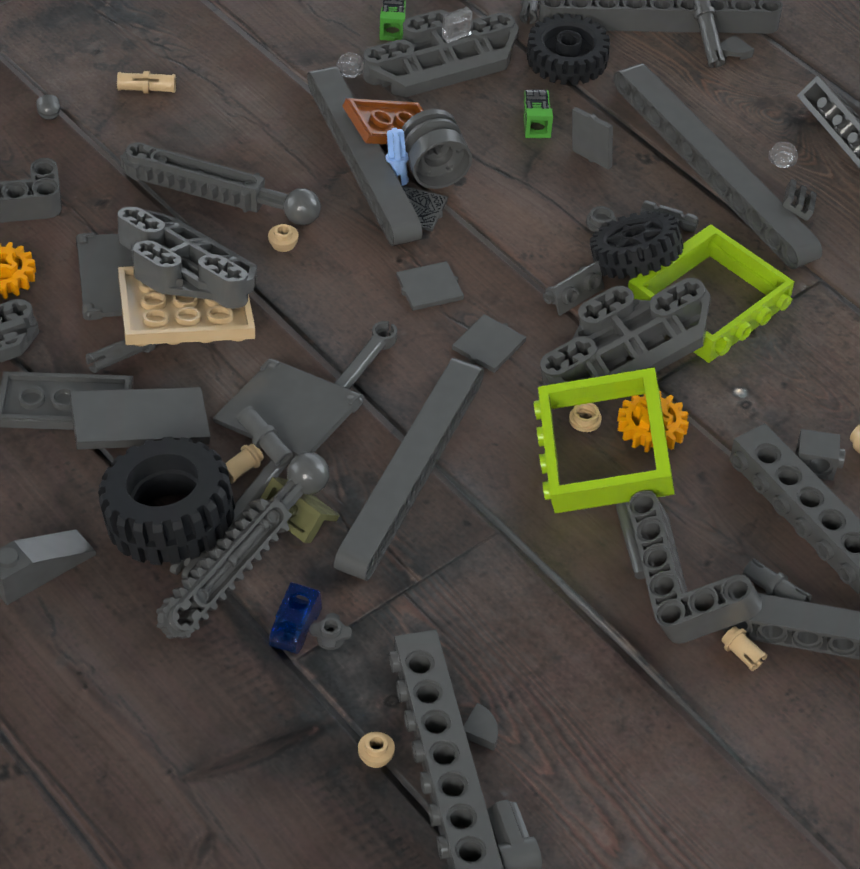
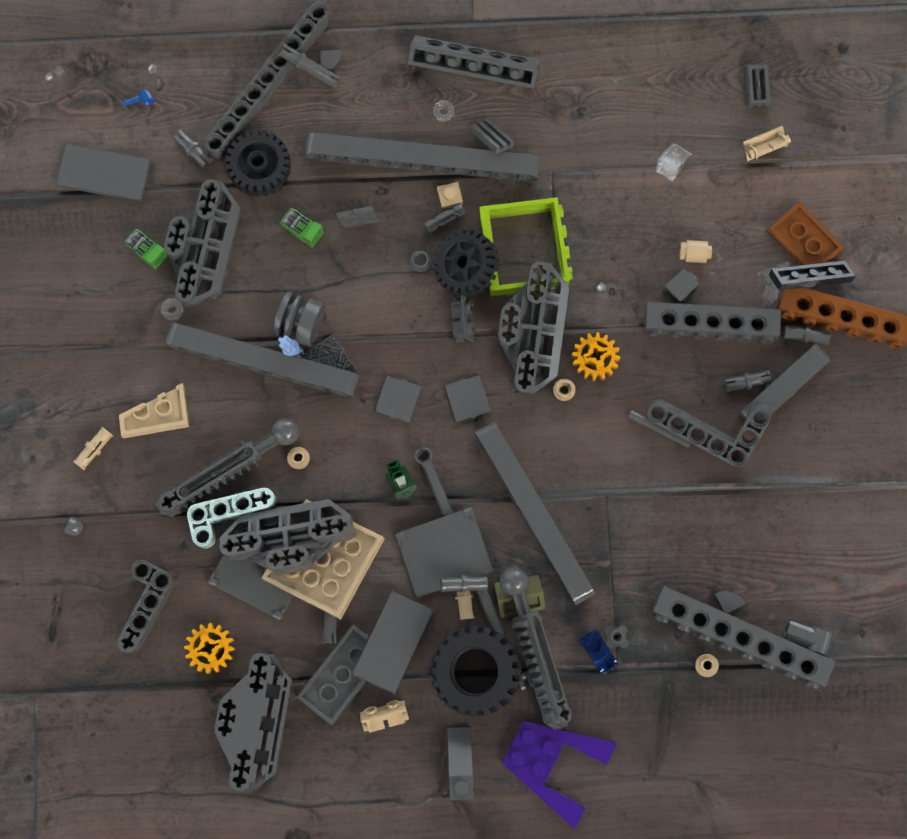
camera: 50 degrees left, 30 degrees up
(53, 465) = (393, 711): none -> tan hinge
(111, 633) = (535, 754): none -> dark purple wing
(157, 194) = (232, 512): none -> light aqua beam
(226, 111) = (158, 415): none -> tan wing
(336, 319) = (400, 480): none -> dark green hips
(377, 117) = (251, 325): dark orange tile -> none
(457, 24) = (202, 225): clear tile -> none
(611, 489) = (586, 436): lime window -> none
(700, 206) = (449, 195): none -> tan plate
(748, 652) = (776, 430): tan pin -> none

